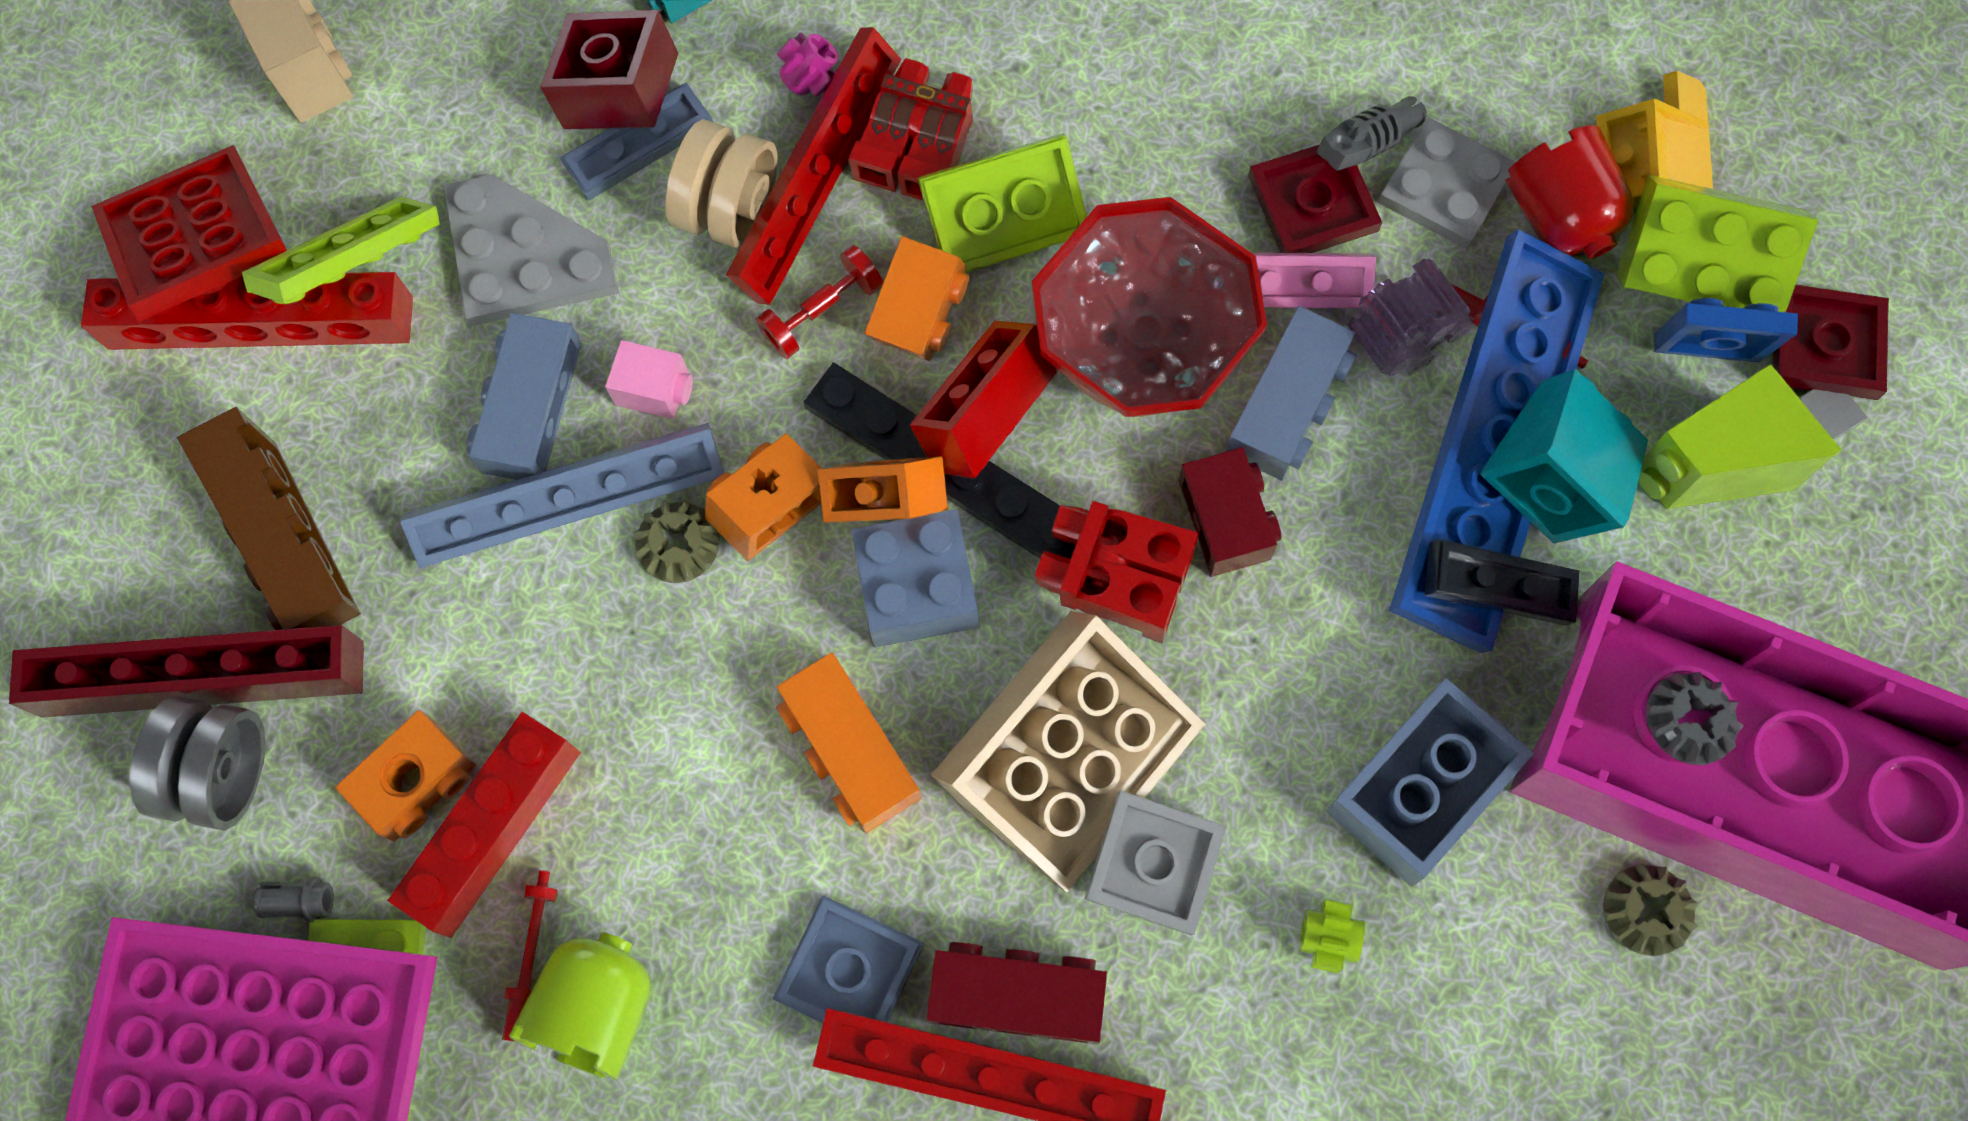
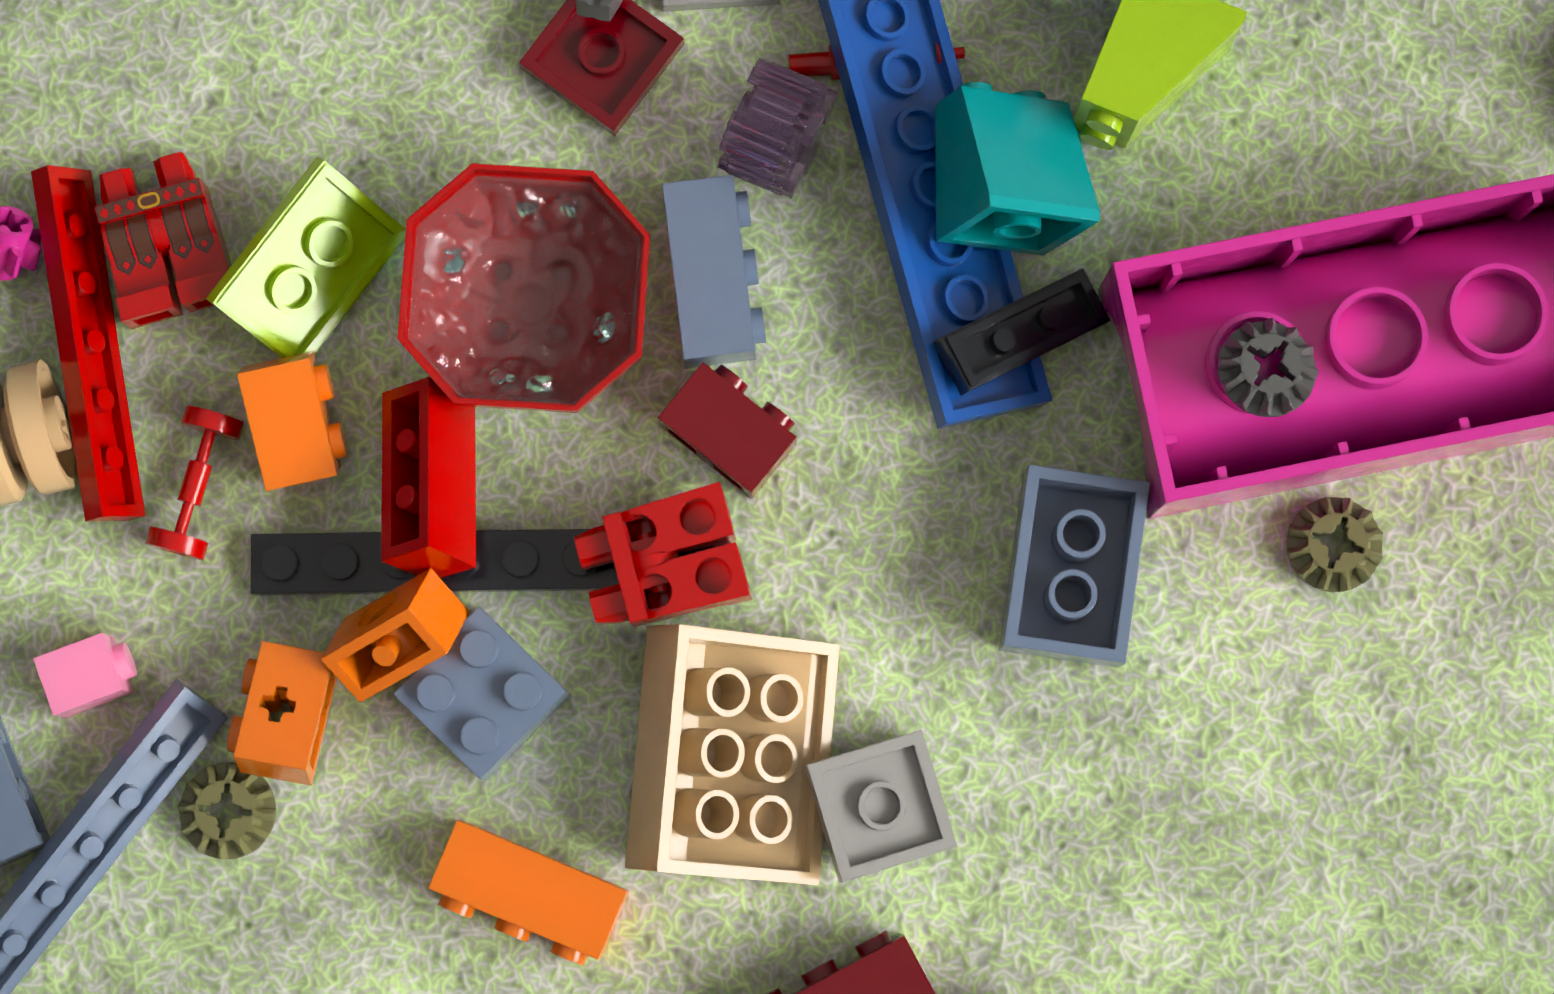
camera: 40 degrees left, 10 degrees up
(1315, 279) = (653, 141): bright pink plate -> none
(1332, 936) = (1077, 763): lime gear -> none

